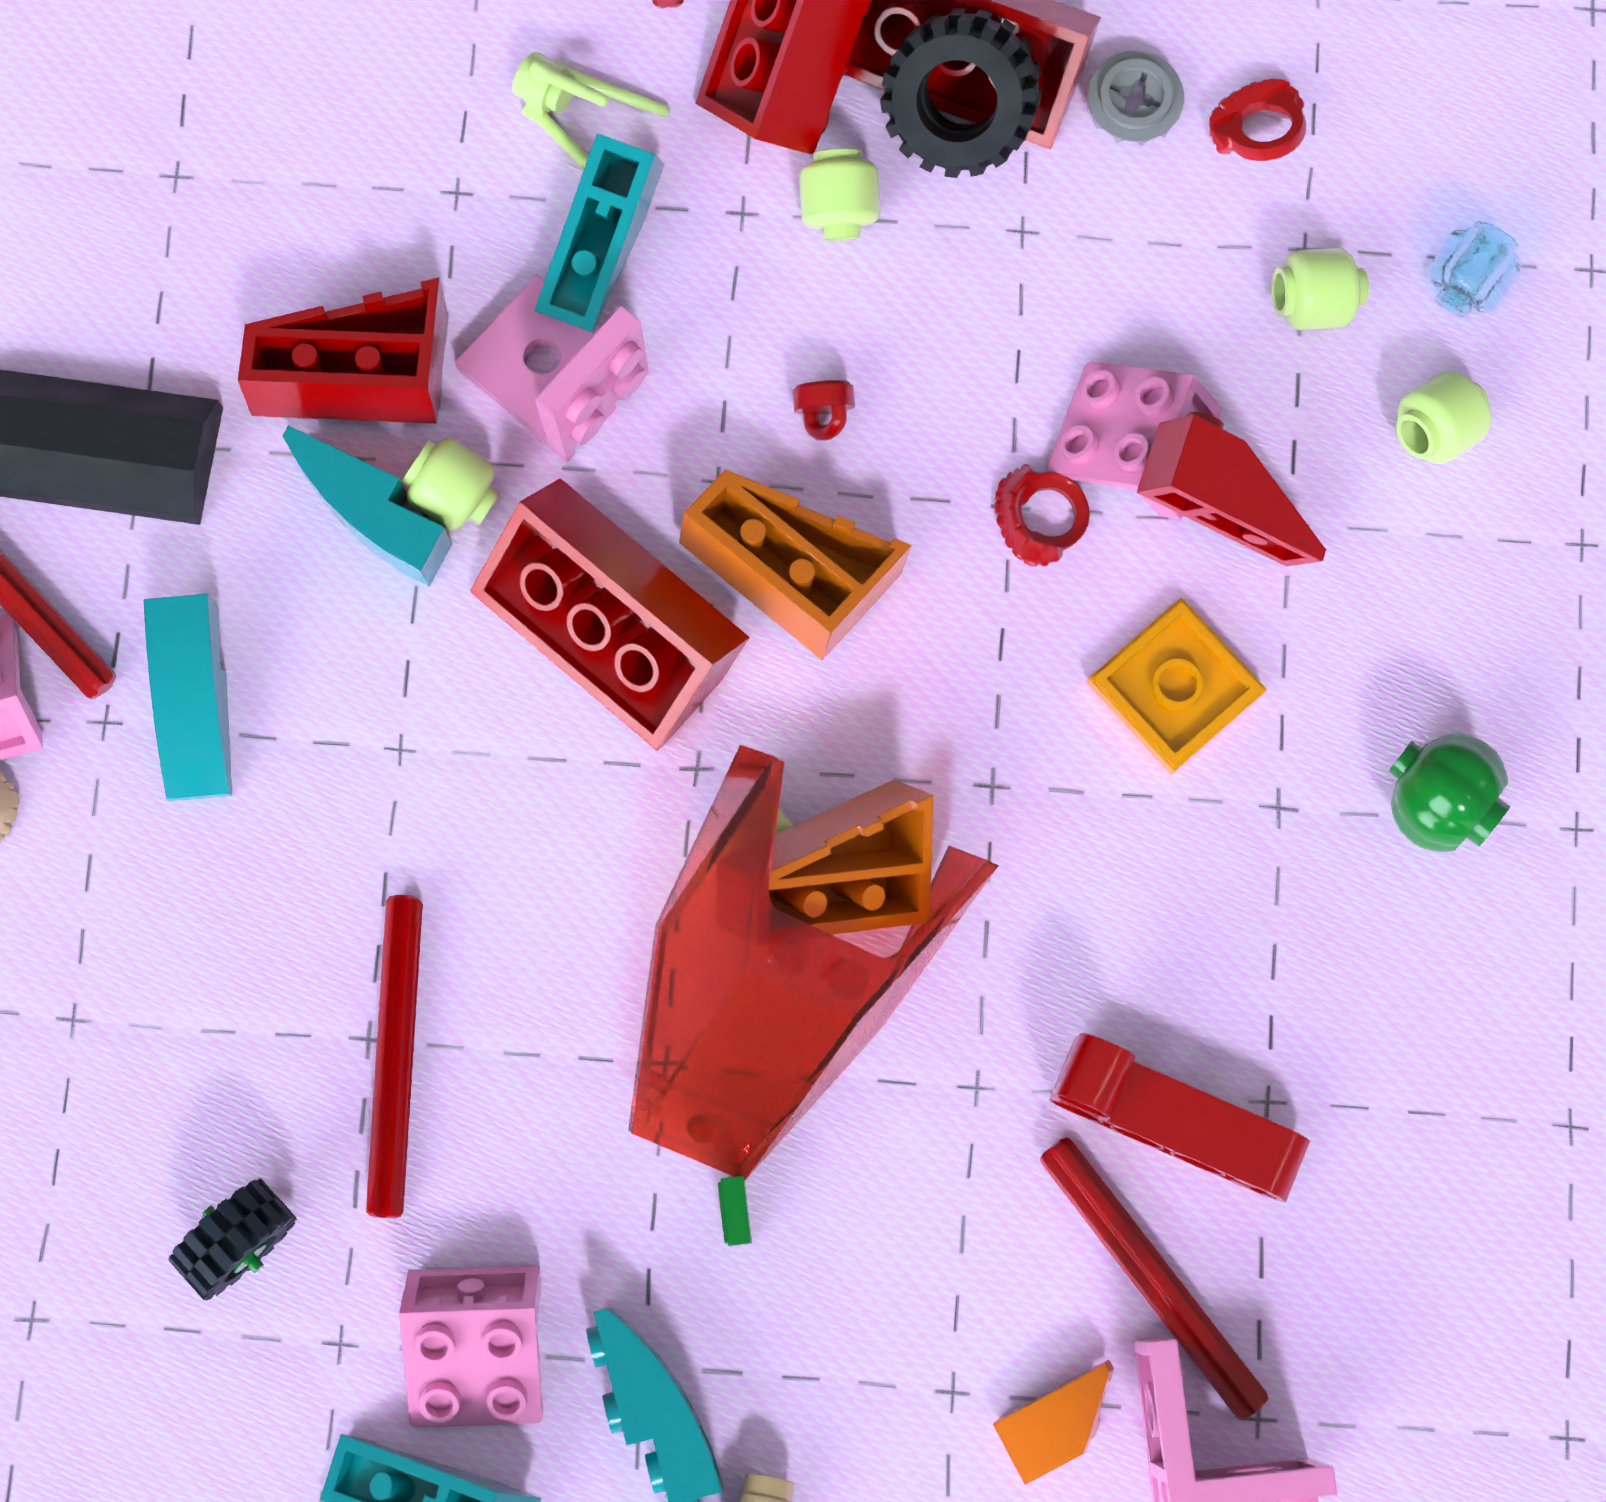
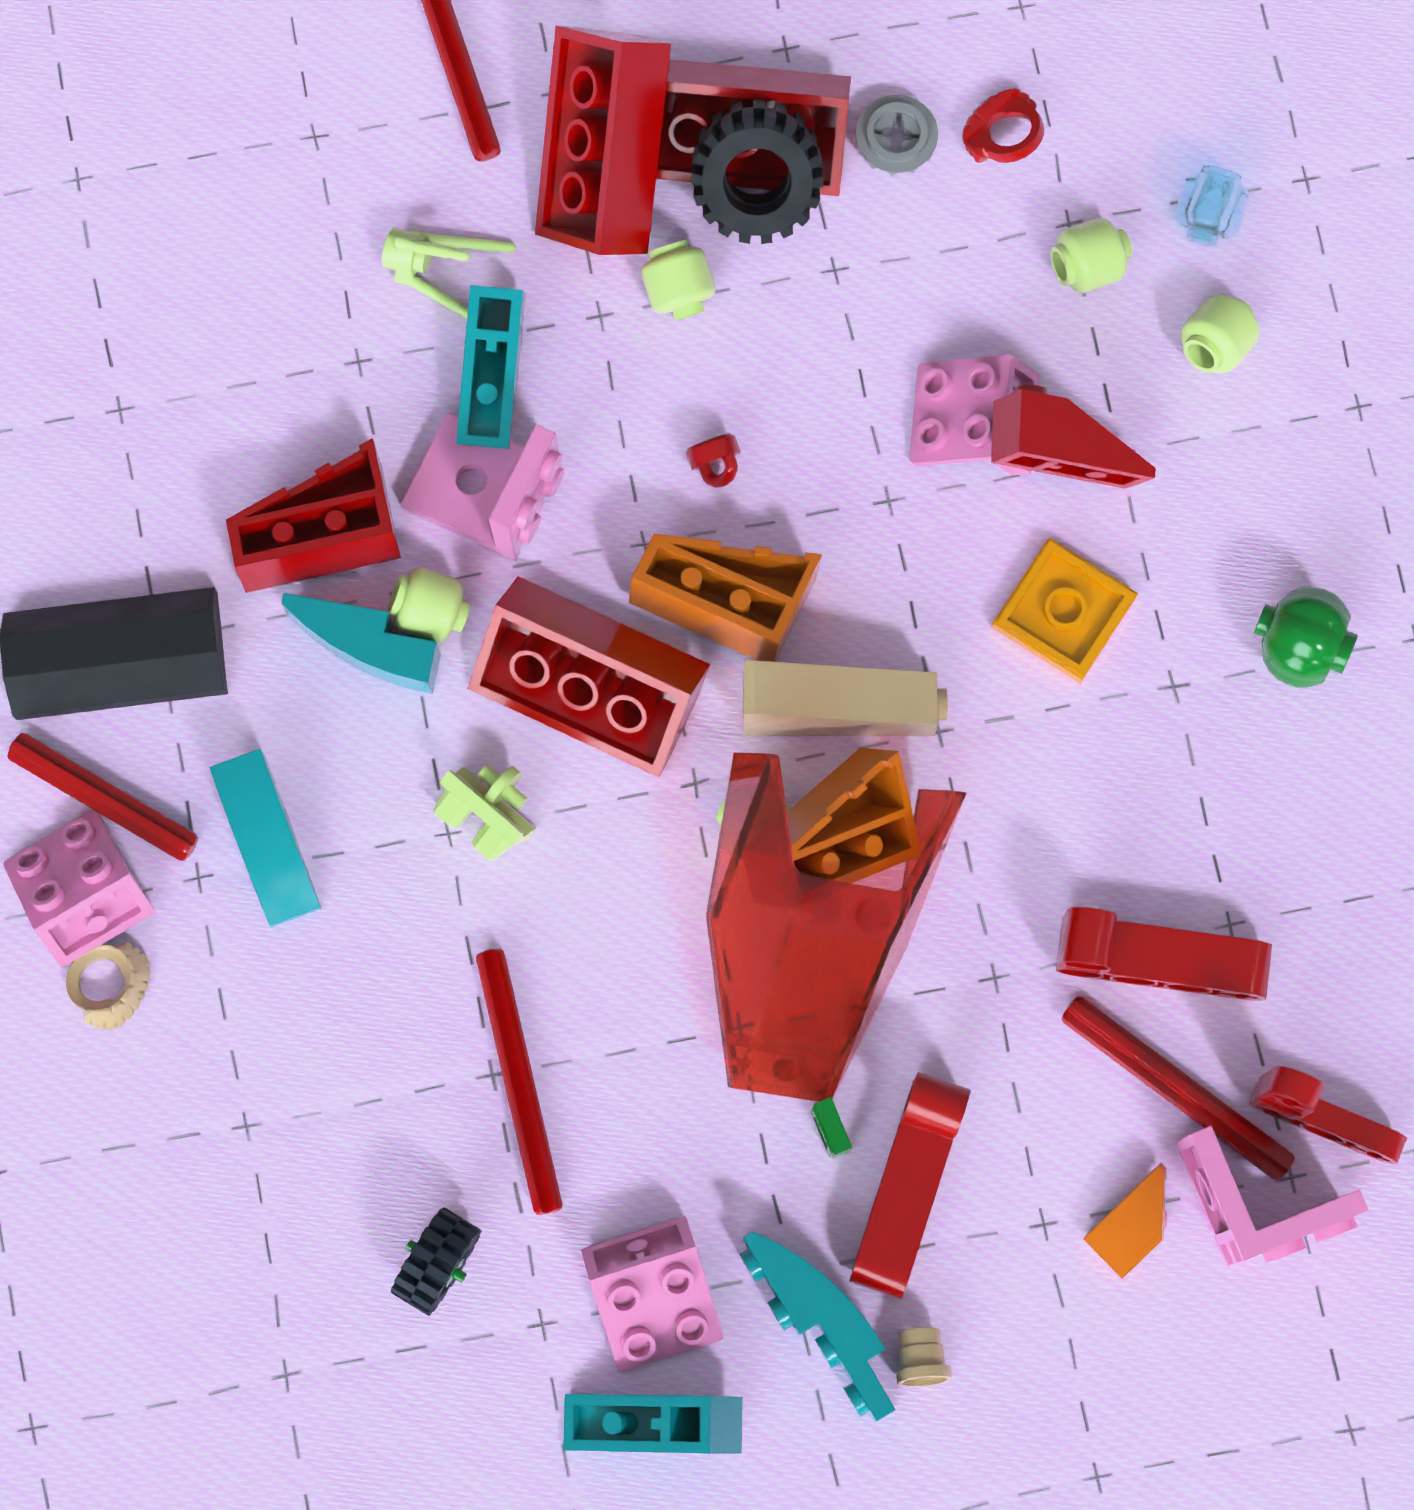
camera: 15 degrees left, 0 degrees up
(457, 727) = (468, 794): none -> yellowish green hips
(805, 1305) = (909, 1184): none -> red beam
(883, 718) = (839, 701): none -> tan slope
(1031, 545) = (917, 527): red piece -> none
(1294, 1340) = (1295, 1100): none -> red beam

